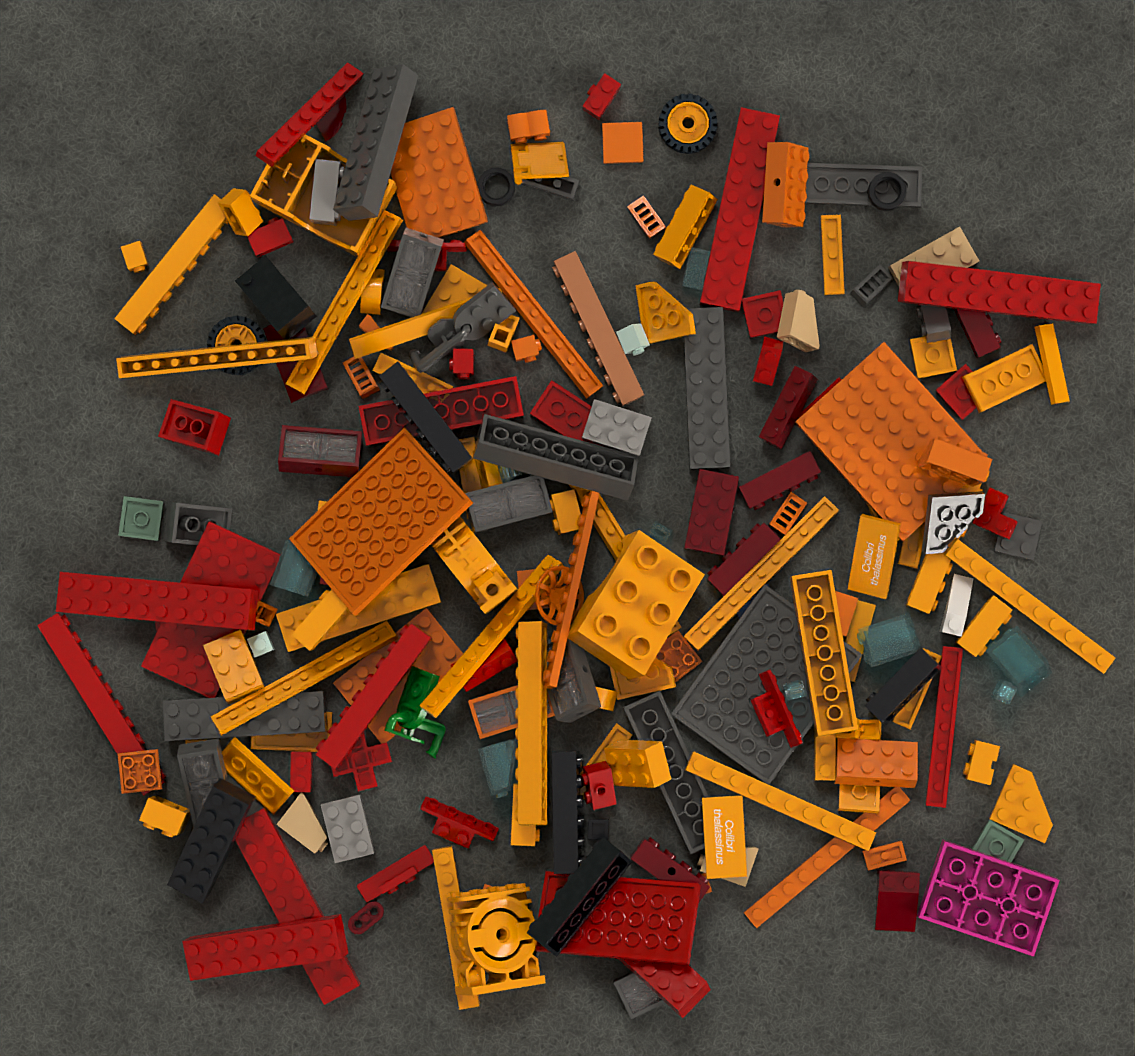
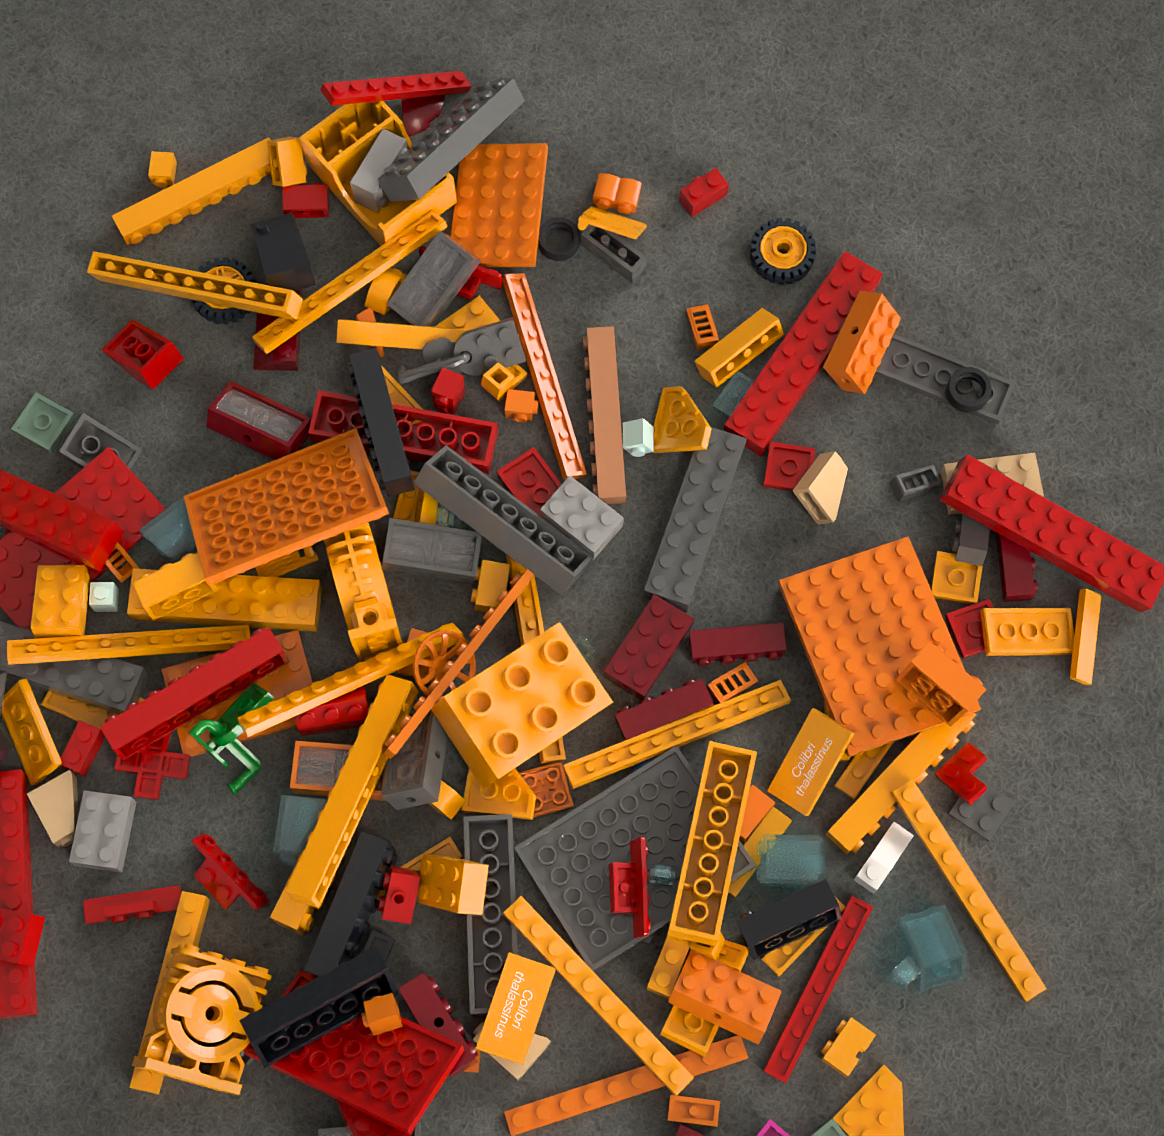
camera: 25 degrees right, 15 degrees down
(366, 917) = (77, 940): dark red plate -> none
(370, 389) = (337, 384): orange slope -> none
(622, 142) = (707, 245): orange tile -> none
(627, 883) = (381, 1014): none -> orange brick
(768, 361) = (773, 512): red brick -> none
(788, 407) = (786, 560): dark red brick -> none
(832, 254) = (885, 436): light orange tile -> none
(948, 518) = (911, 751): plate -> none
(984, 626) = (907, 892): light orange brick -> none

